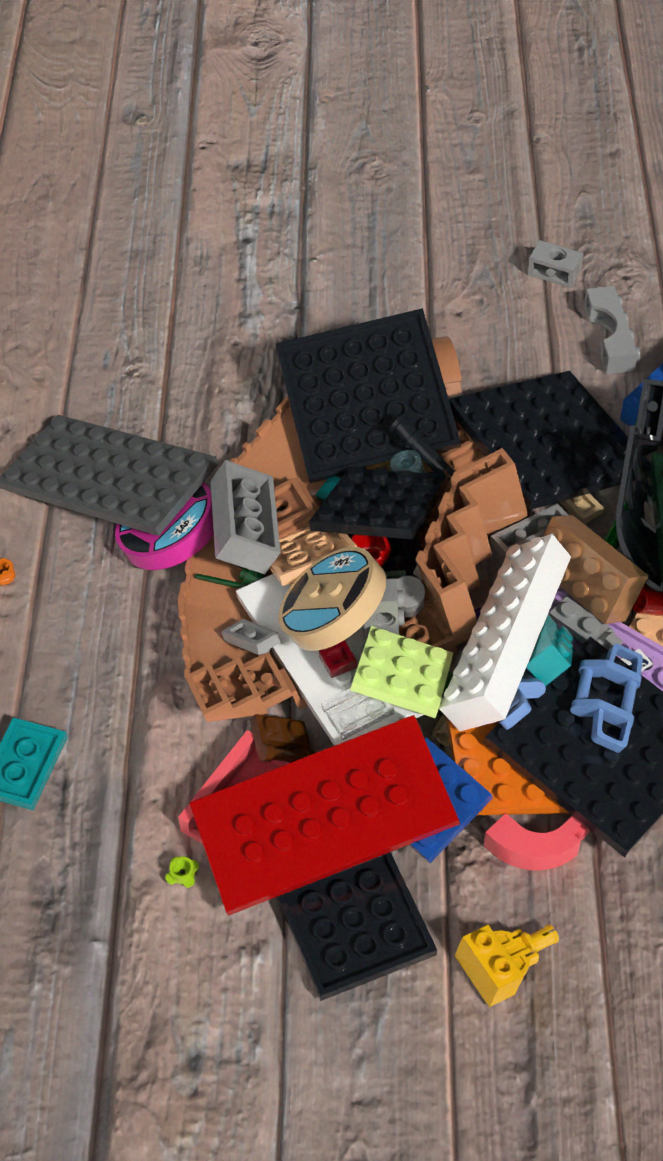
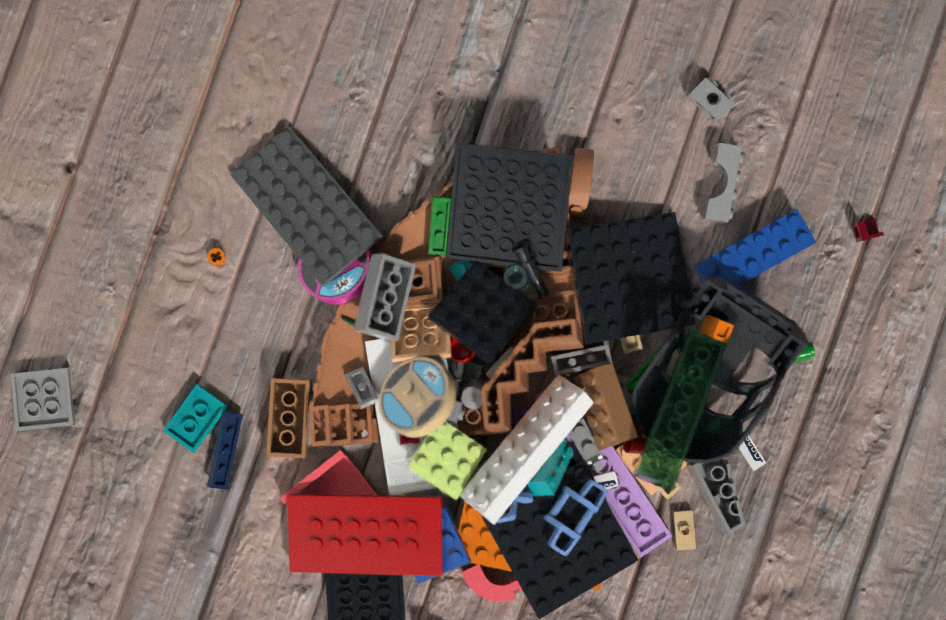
camera: 15 degrees right, 35 degrees up
(77, 790) = (225, 450): none -> dark blue plate
(160, 716) = (289, 418): none -> medium nougat brick
(178, 864) = (275, 533): lime plate -> none
(280, 733) = (361, 456): reddish brown plate -> none
(286, 445) = (439, 225): none -> green plate

